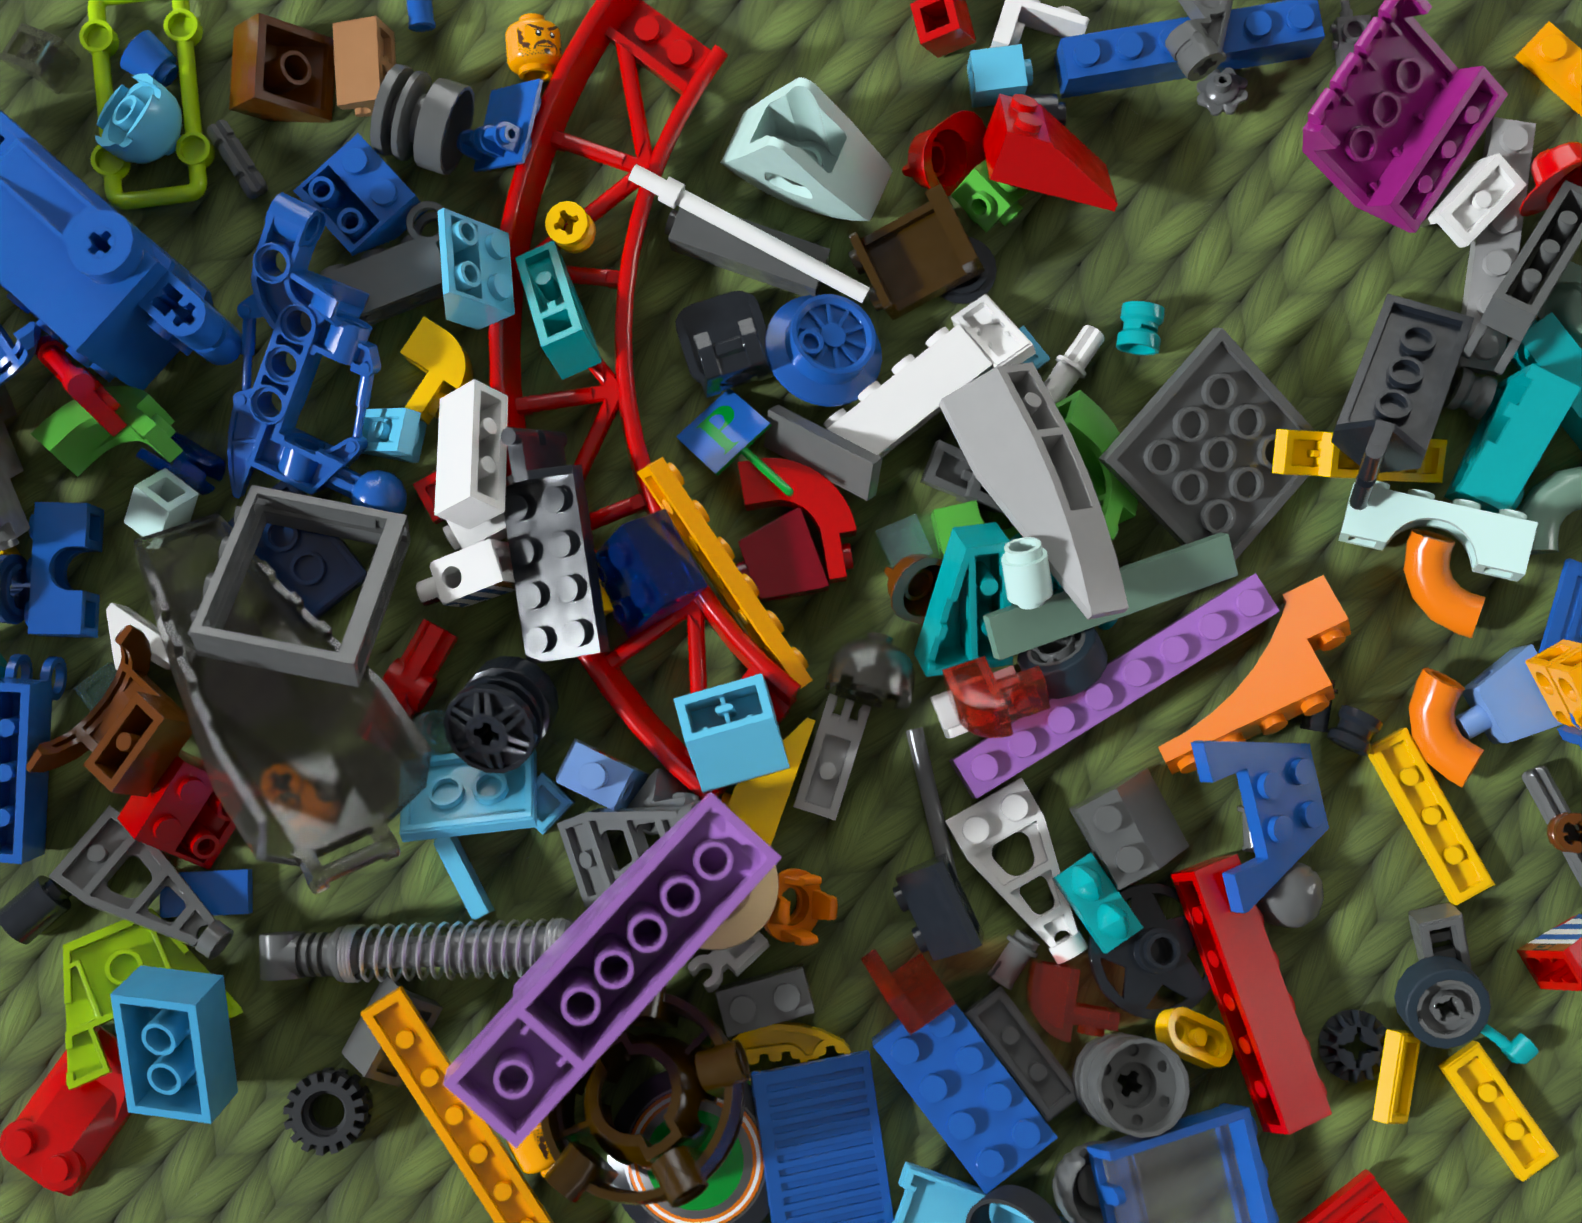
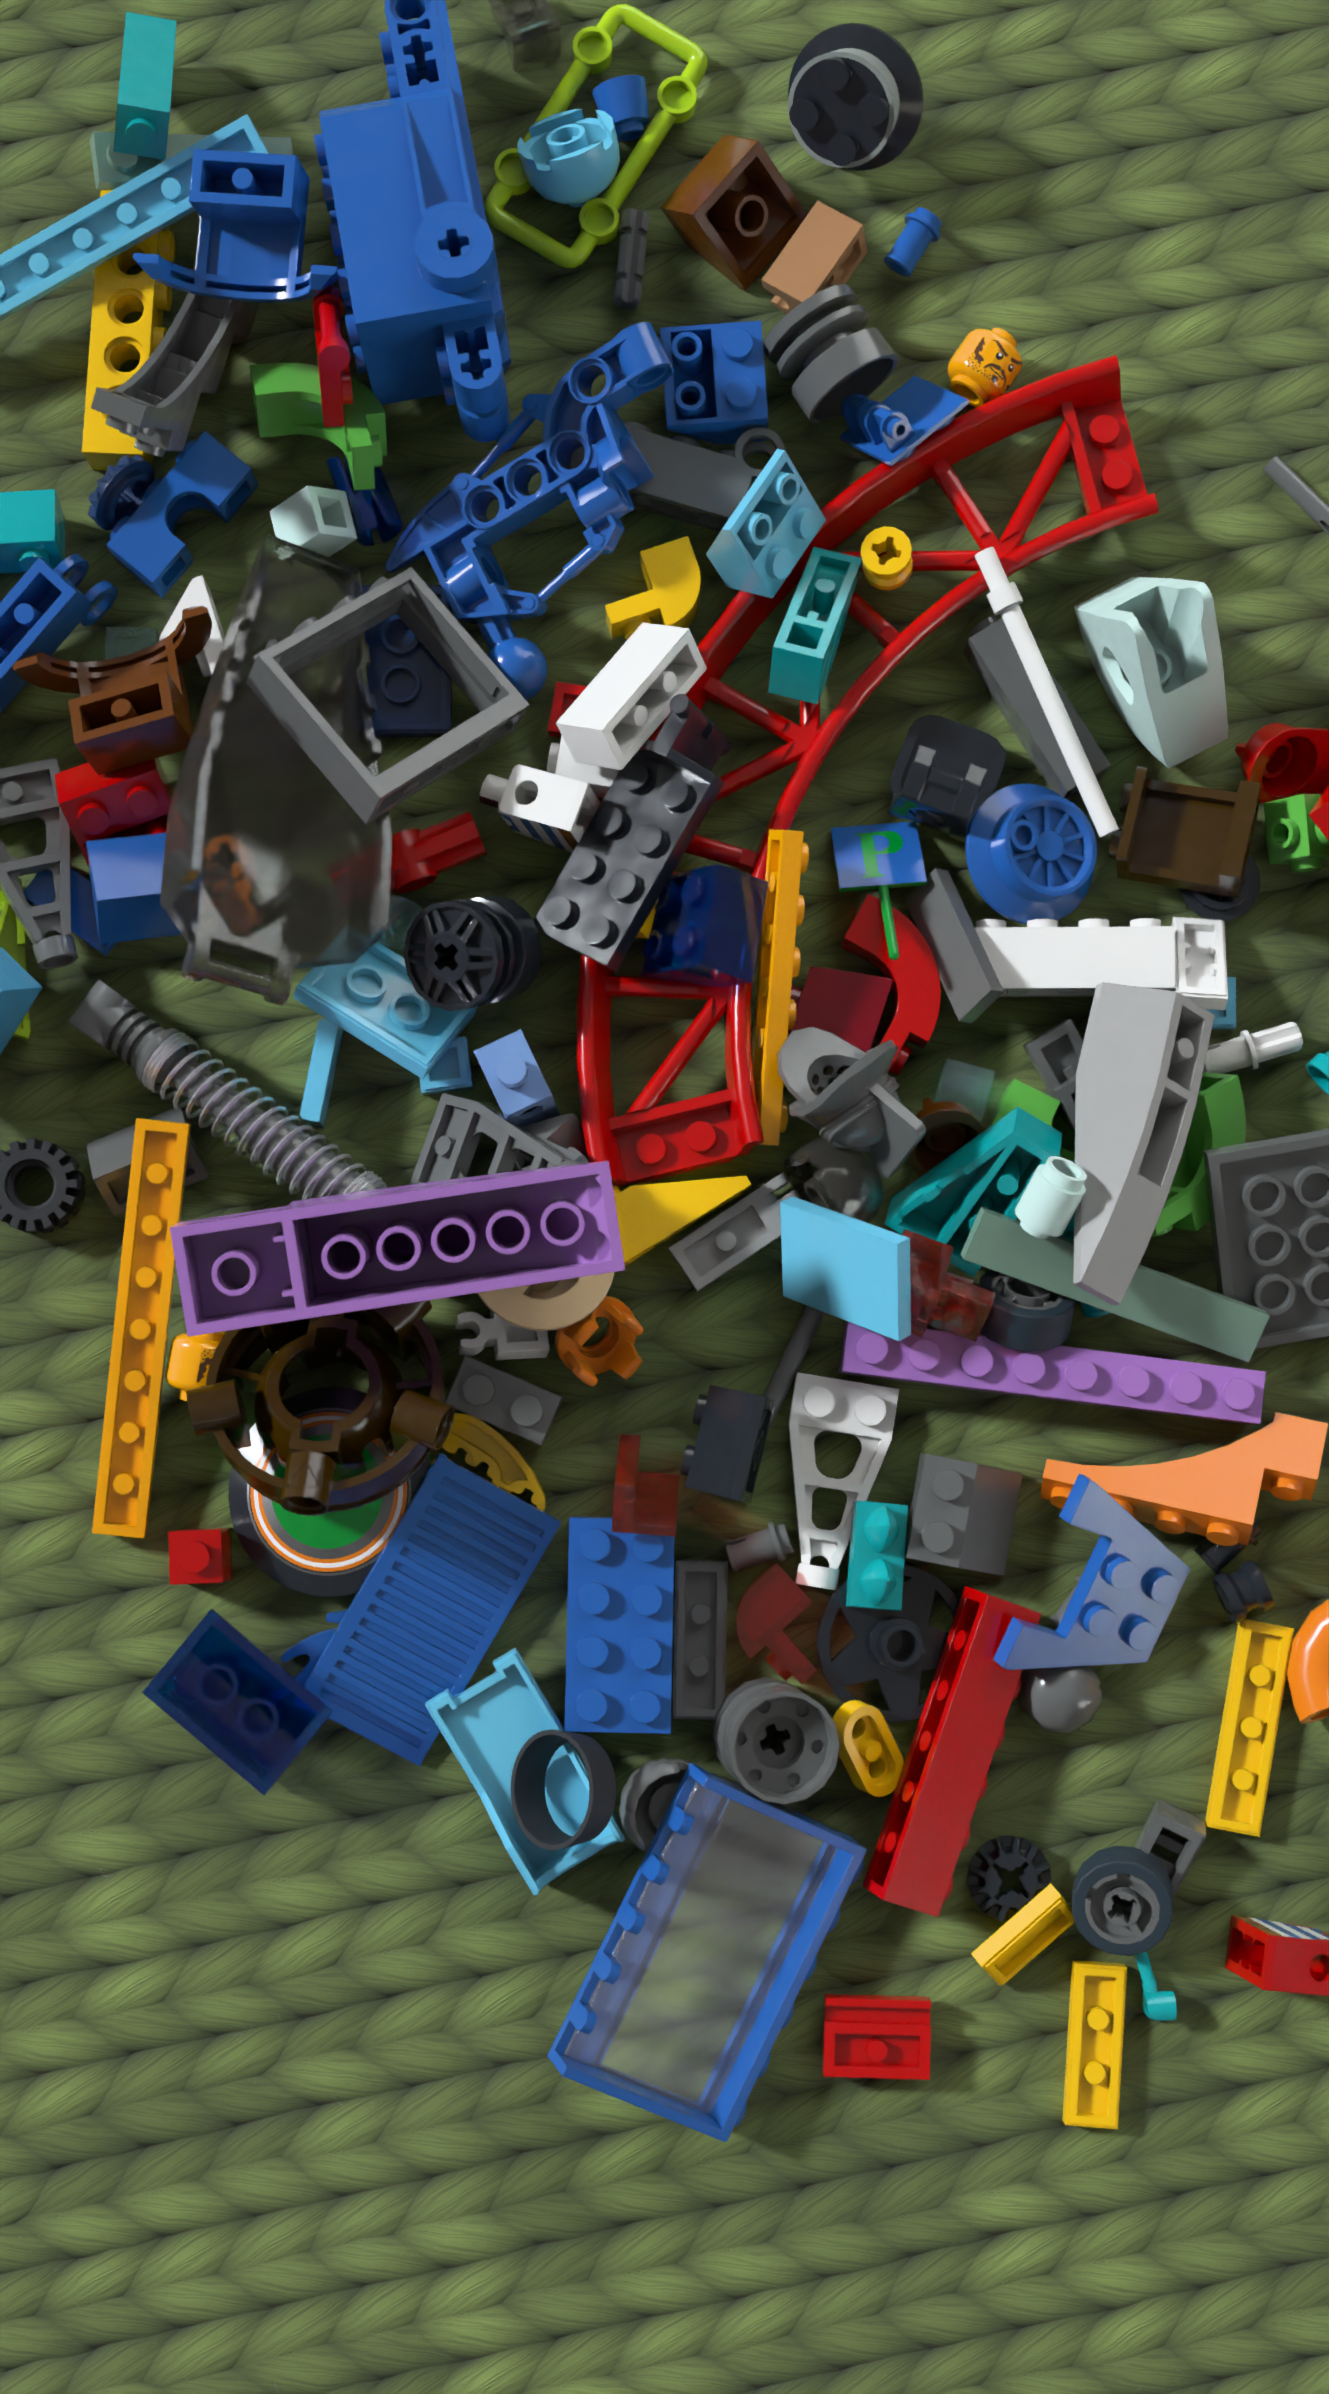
camera: 35 degrees right, 0 degrees up
(225, 859) = (128, 888): none -> blue slope
(394, 433) = (575, 622): medium azure slope -> none
(732, 733) = (668, 1132): medium azure slope -> none
(844, 606) = (859, 1105): none -> dark grey helmet
(925, 727) = (846, 1267): none -> medium azure tile

